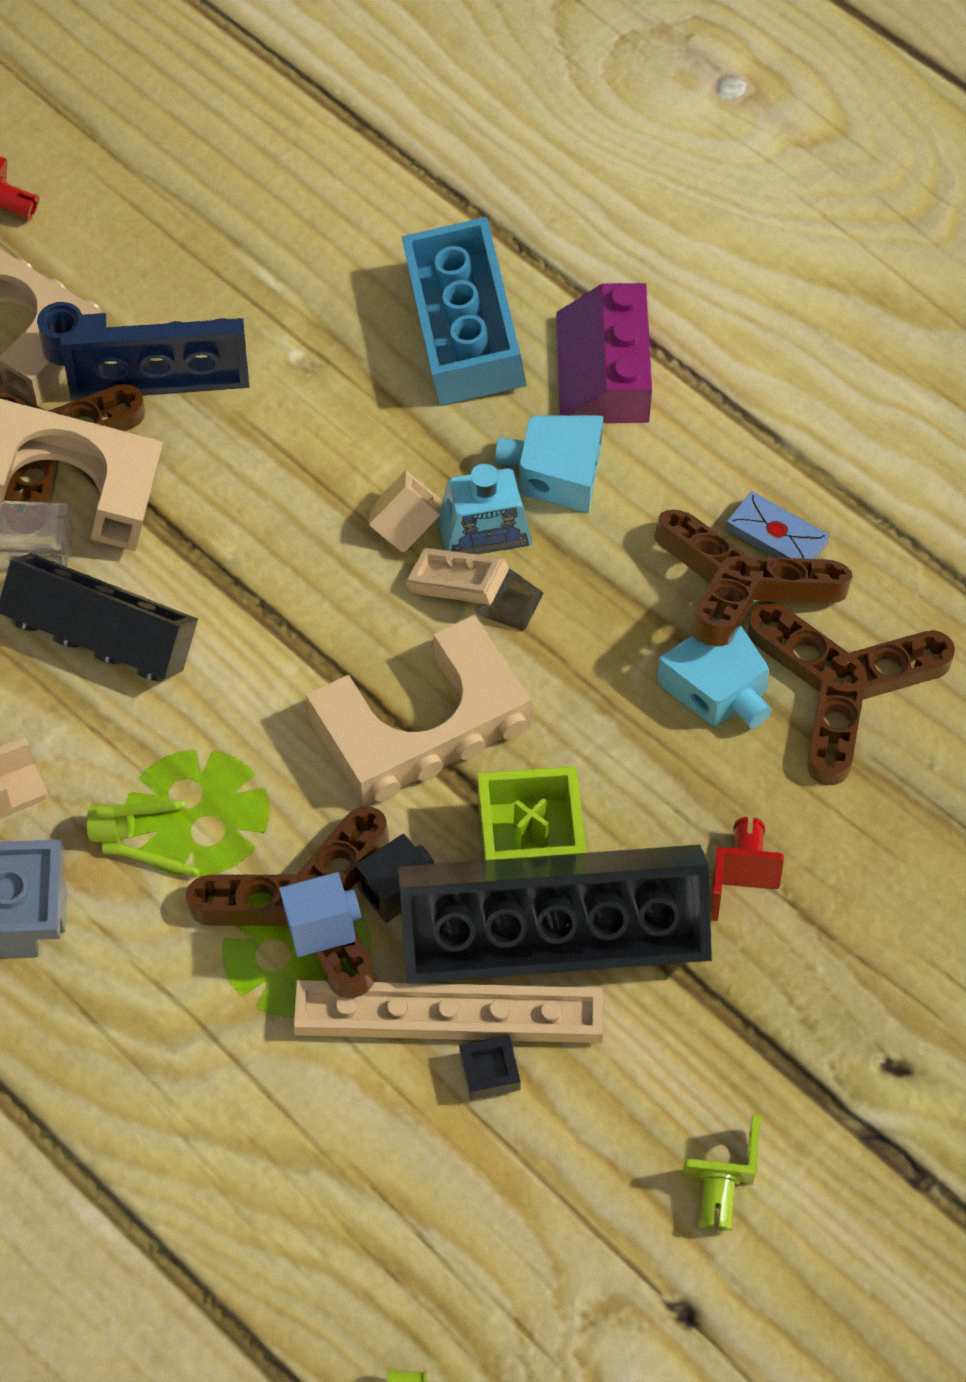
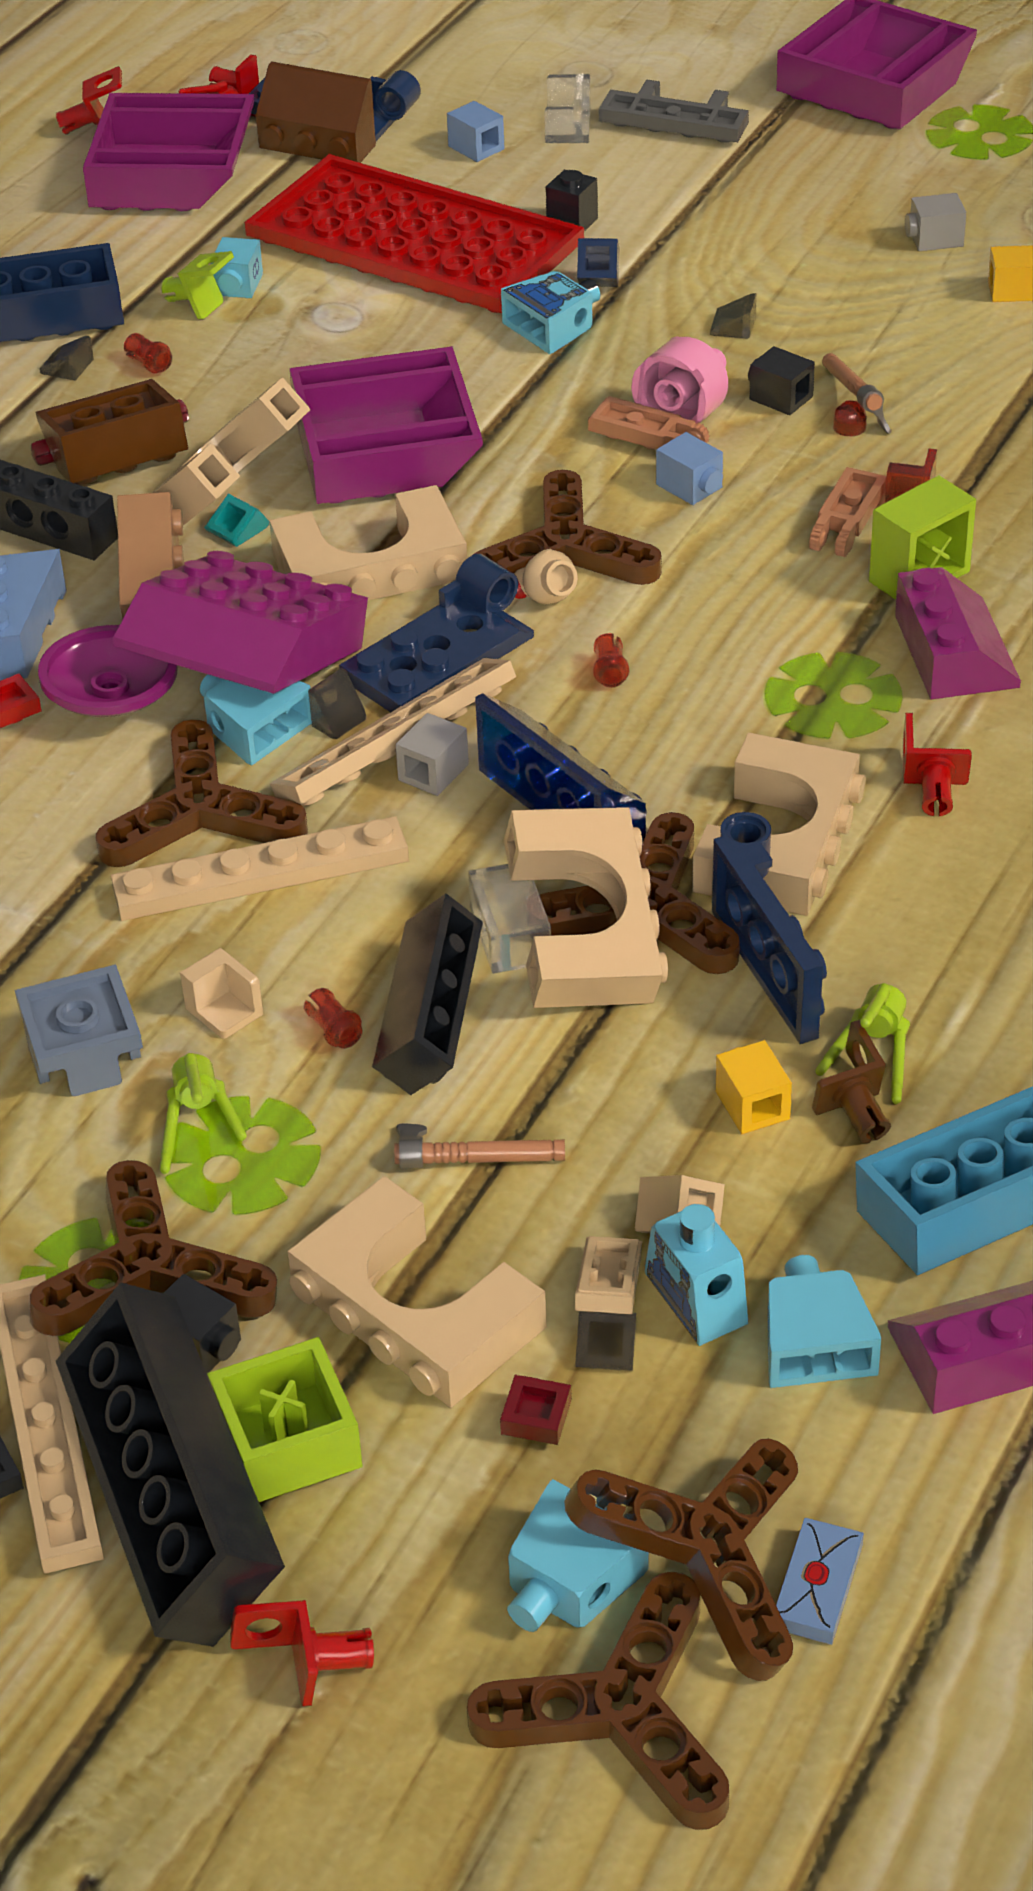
camera: 75 degrees right, 15 degrees down
(77, 701) = (340, 1026): none -> clear red pin
(260, 679) = (413, 1152): none -> nougat piece
(261, 322) = (880, 1016): none -> lime plant
(297, 425) = (753, 1087): none -> yellow brick
(320, 913) = (99, 1247): medium blue brick -> none
(333, 362) = (856, 1087): none -> reddish brown bracket
(568, 661) = (536, 1409): none -> dark red plate

